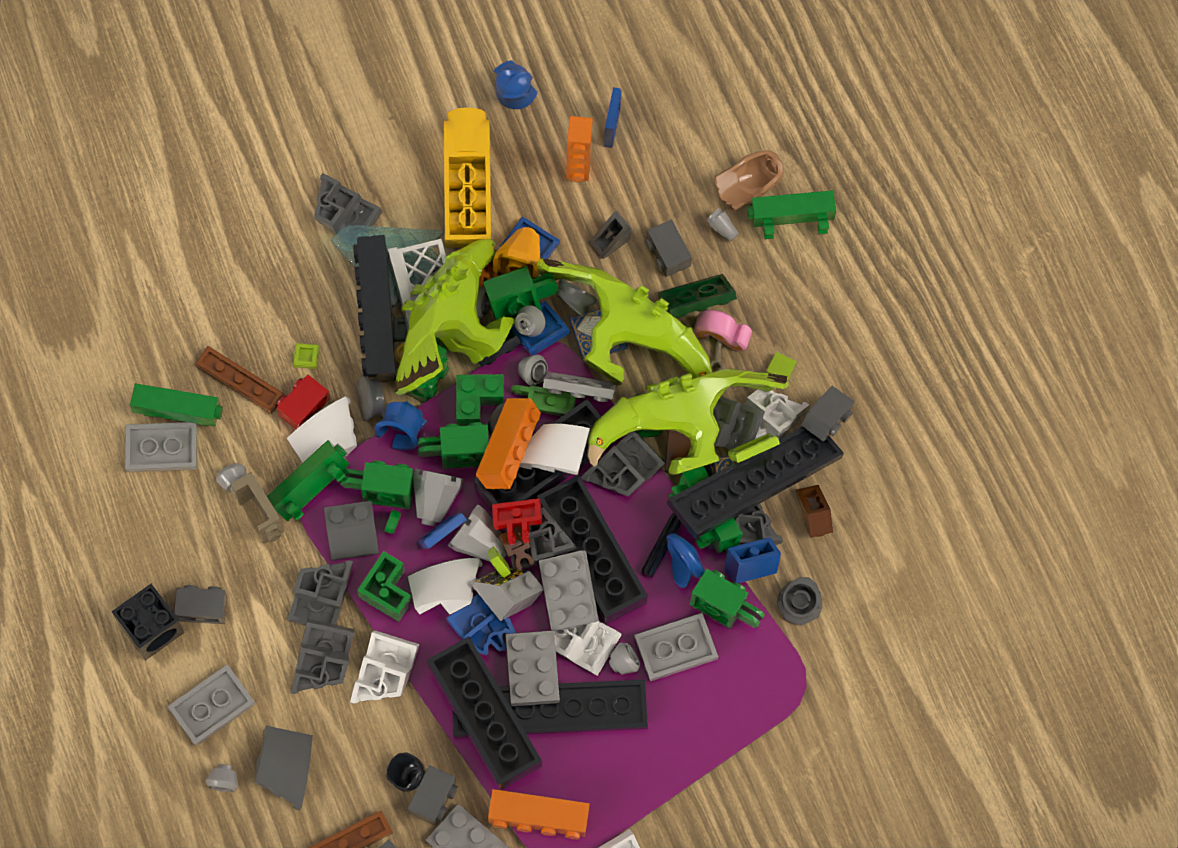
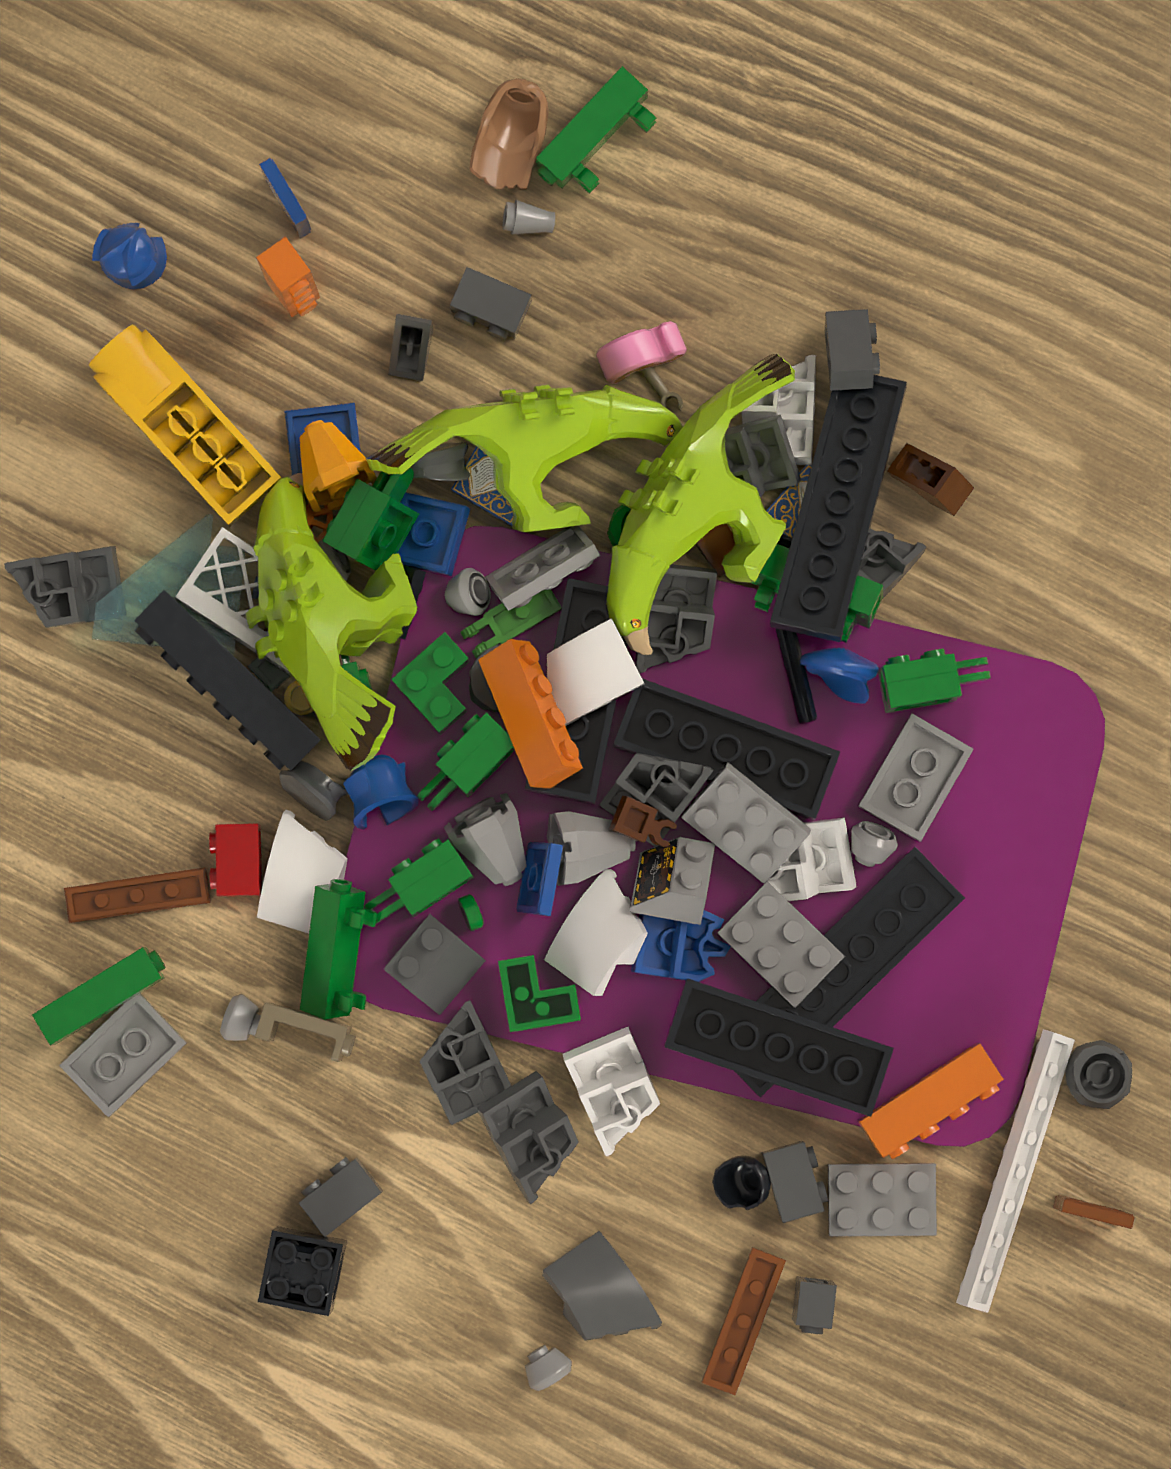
camera: 40 degrees left, 15 degrees up
(211, 705) = (456, 1297): light grey plate -> none
(306, 356) = (188, 799): lime tile -> none
(498, 562) = (639, 859): lime tile -> none
(517, 515) = (615, 789): red hinge -> none
(530, 321) = (416, 539): light grey cone -> none
(698, 295) = (577, 335): dark green plate -> none
(752, 560) = (915, 602): blue brick -> none
(753, 447) = (805, 469): lime tile -> none
(781, 365) = (744, 336): lime tile -> none
(800, 601) = (1003, 600): dark grey hat -> none

